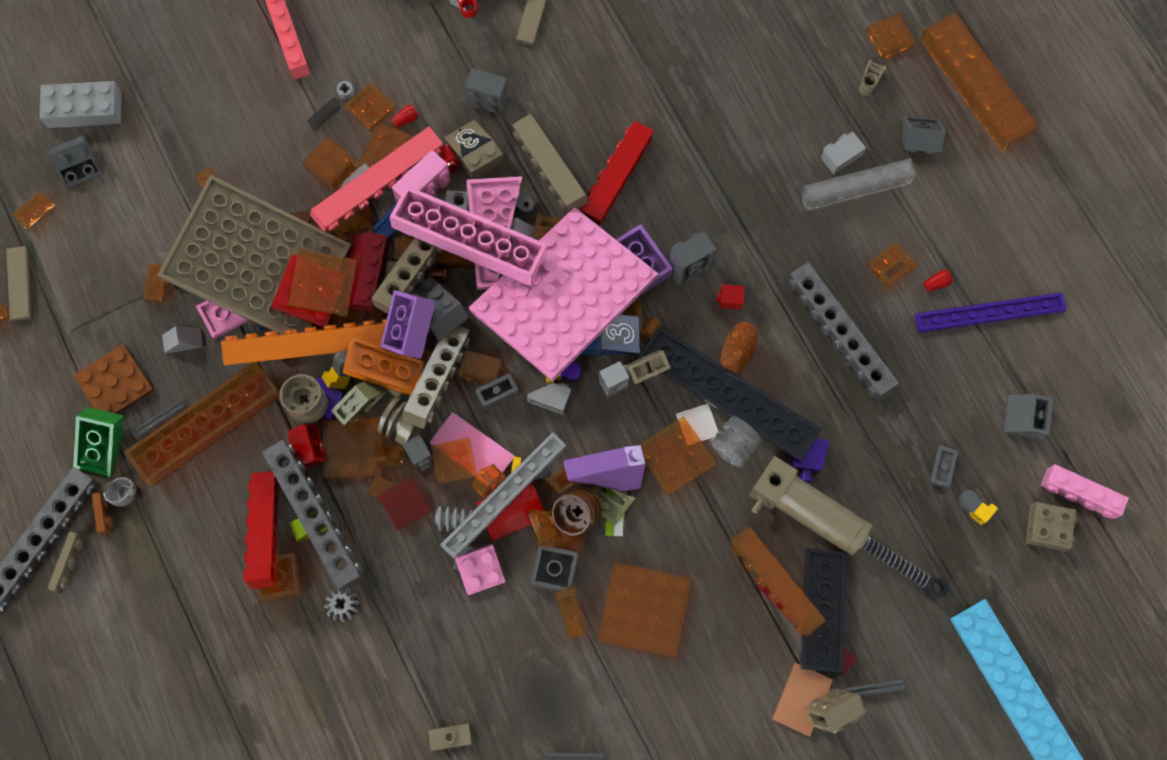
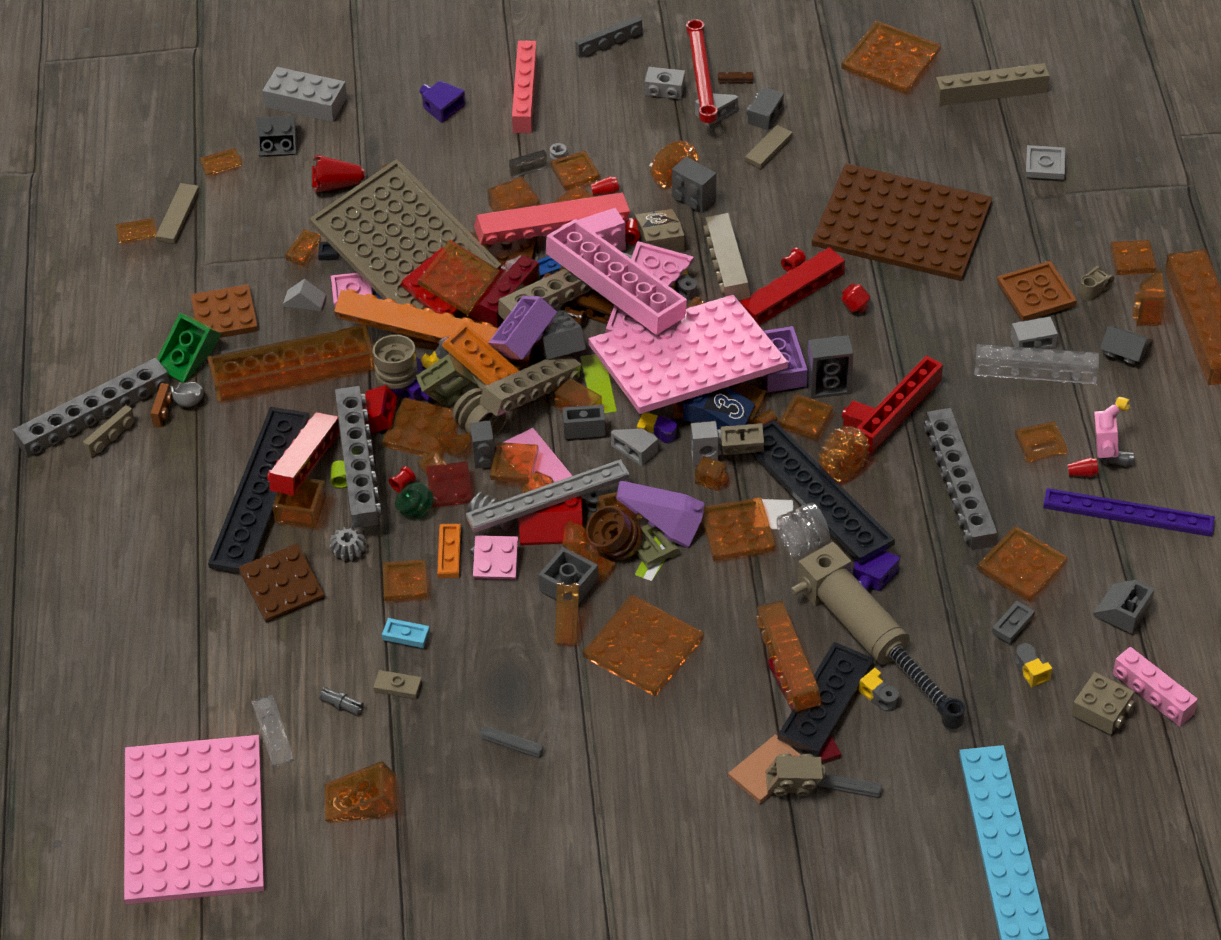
camera: 25 degrees right, 25 degrees down
(150, 190) = (334, 174): none -> red cone
(213, 67) = (442, 100): none -> dark purple torso
(236, 603) = (253, 501): none -> black plate
(299, 671) = (281, 582): none -> reddish brown plate
(360, 514) = (402, 479): none -> red bush
(381, 534) = (414, 500): none -> clear green piece
(409, 623) = (404, 580): none -> clear orange plate
(434, 573) = (449, 550): none -> orange tile
(434, 681) = (405, 633): none -> medium azure plate
(457, 72) = (668, 158): none -> clear orange gear
(489, 341) = (598, 380): none -> lime sticker
(605, 142) = (793, 260): none -> red bush
(630, 405) = (710, 473): none -> clear orange brick
(677, 167) = (855, 298): none -> red head
(681, 63) = (902, 221): none -> reddish brown plate
(685, 311) = (806, 416): none -> clear orange plate
(762, 270) = (901, 402): none -> red brick
(826, 102) = (1036, 291): none -> dark orange plate
(863, 584) = (878, 691): none -> leg
(927, 401) = (1022, 563): none -> clear orange plate
(930, 84) = (1149, 301): none -> clear orange slope
(951, 245) = (1107, 435): none -> bright pink torso

